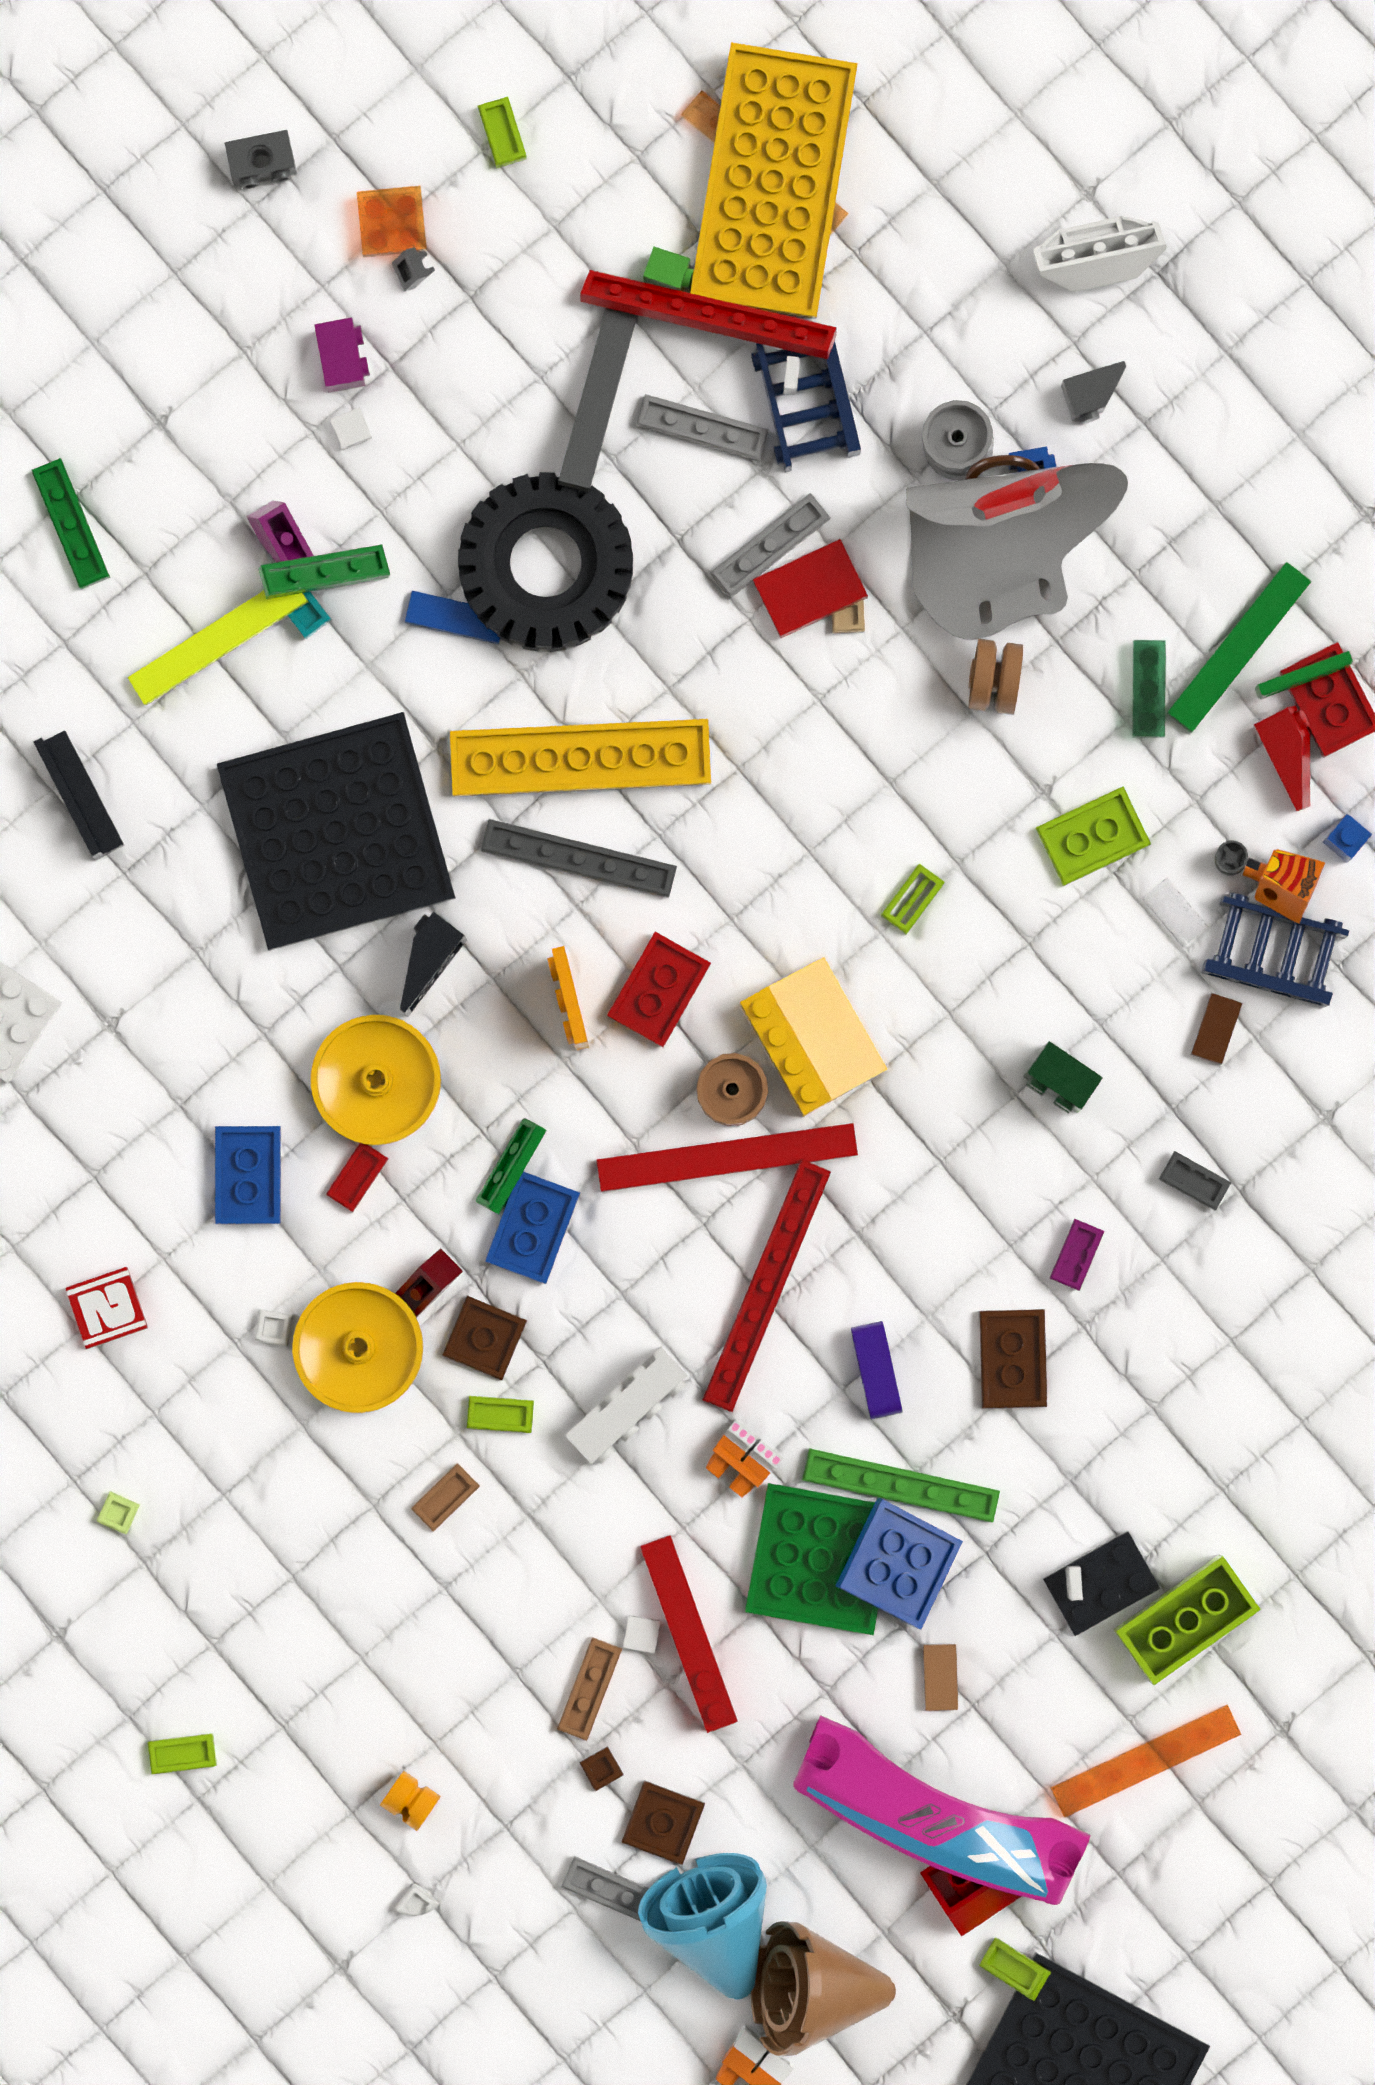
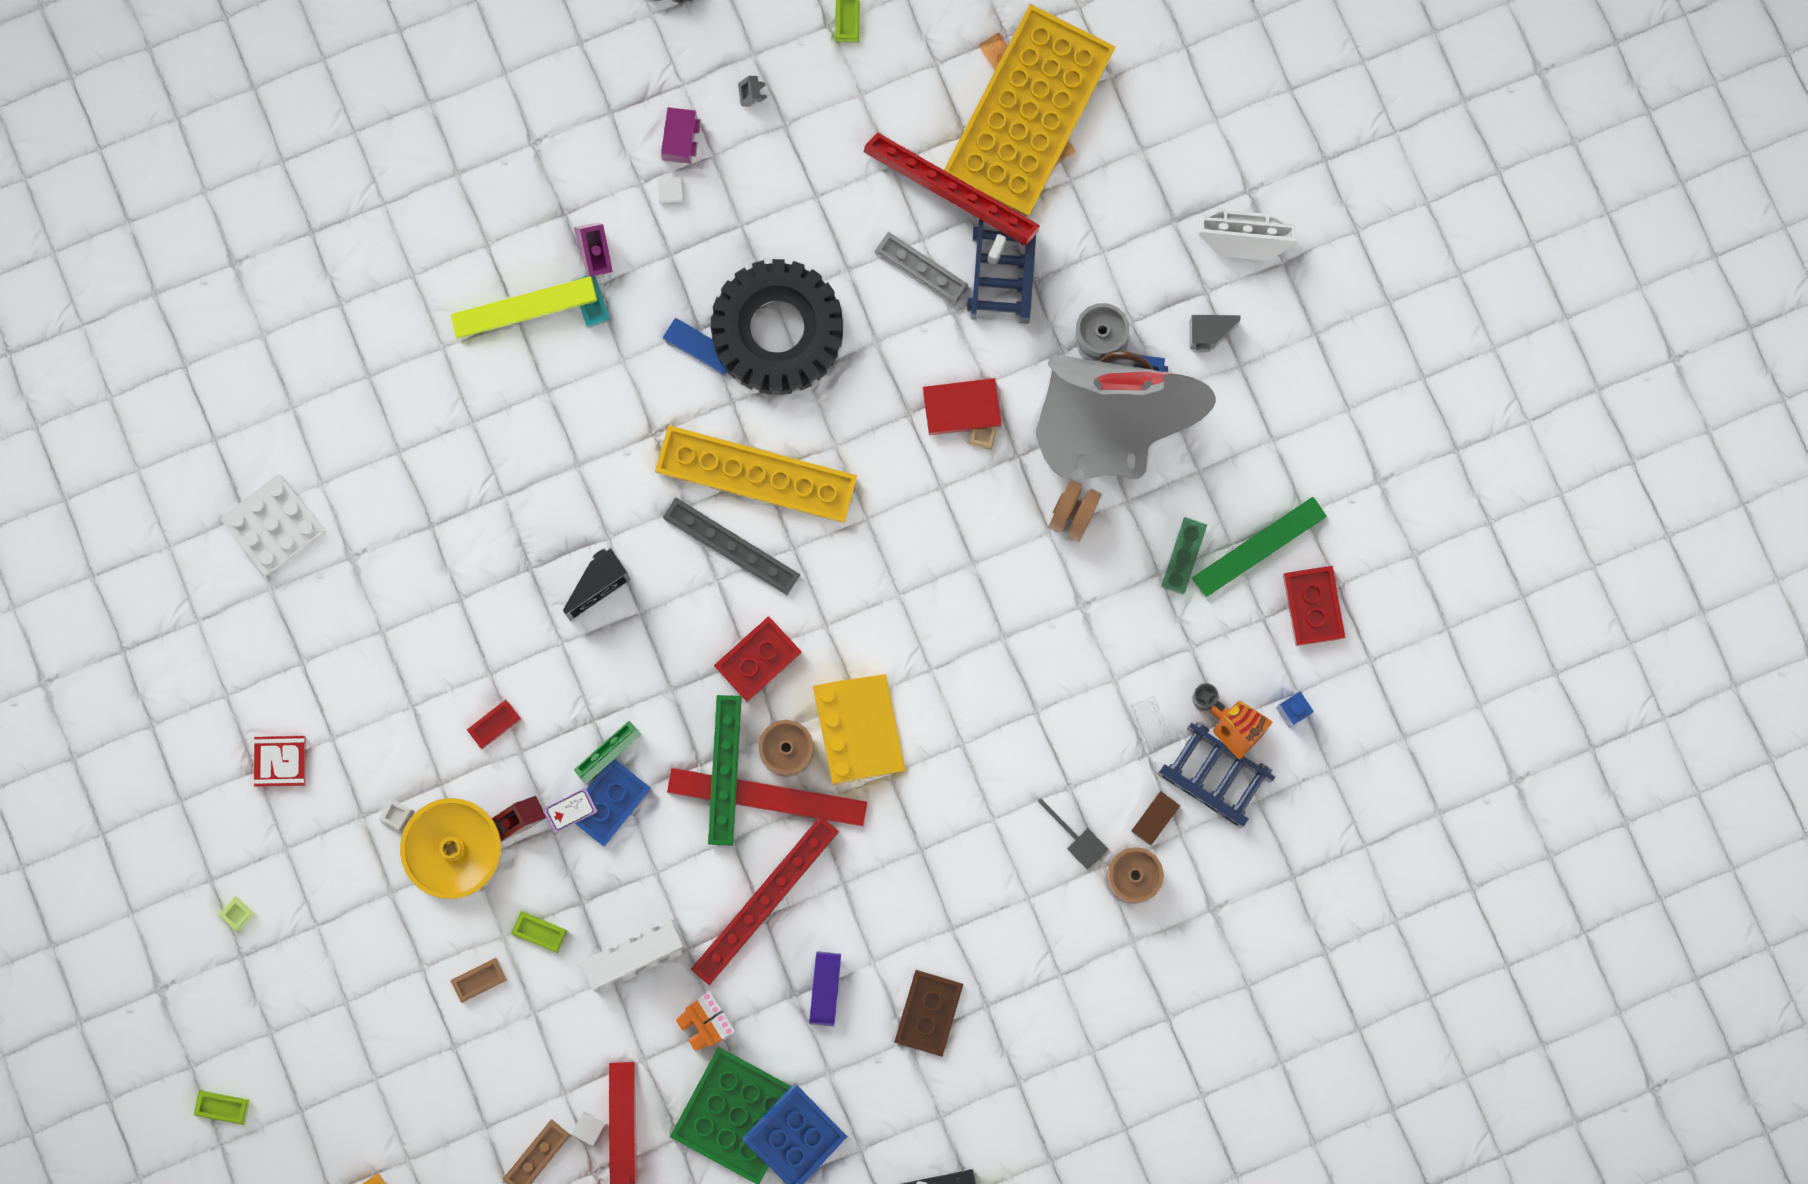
camera: 15 degrees right, 5 degrees down
(70, 523) = (447, 193): green tile -> none
(79, 794) = (387, 386): black fence -> none
(247, 1174) = (414, 697): blue plate -> none
(324, 571) = (615, 282): green tile -> none
(336, 831) = (562, 471): black plate -> none
(375, 1079) = (529, 658): yellow dish -> none
(391, 221) = (747, 53): clear orange plate -> none
(484, 1337) = (546, 872): reddish brown tile -> none
(489, 1252) = (570, 810): none -> white sticker
(567, 998) = (687, 642): light orange plate -> none
(597, 400) = (852, 224): dark grey tile -> none
(664, 1141) = (724, 770): none -> green tile
(668, 269) = (933, 148): bright green brick -> none
(770, 545) = (943, 367): light grey tile -> none
(896, 921) = (946, 665): lime tile -> none
(901, 1485) = (816, 1080): bright green tile -> none
(1062, 1078) = (1030, 817): dark green brick -> none
(1076, 1254) = (1000, 951): magenta plate -> none
(1093, 836) = (1109, 649): lime tile -> none
(1142, 1092) = (1086, 847): none -> dark grey piece
(1194, 1112) = (1119, 875): none -> medium nougat wheel
(1194, 1180) = (1104, 924): dark grey plate -> none
(1288, 747) = (1272, 630): red slope -> none
(1303, 675) = (1299, 580): green tile -> none

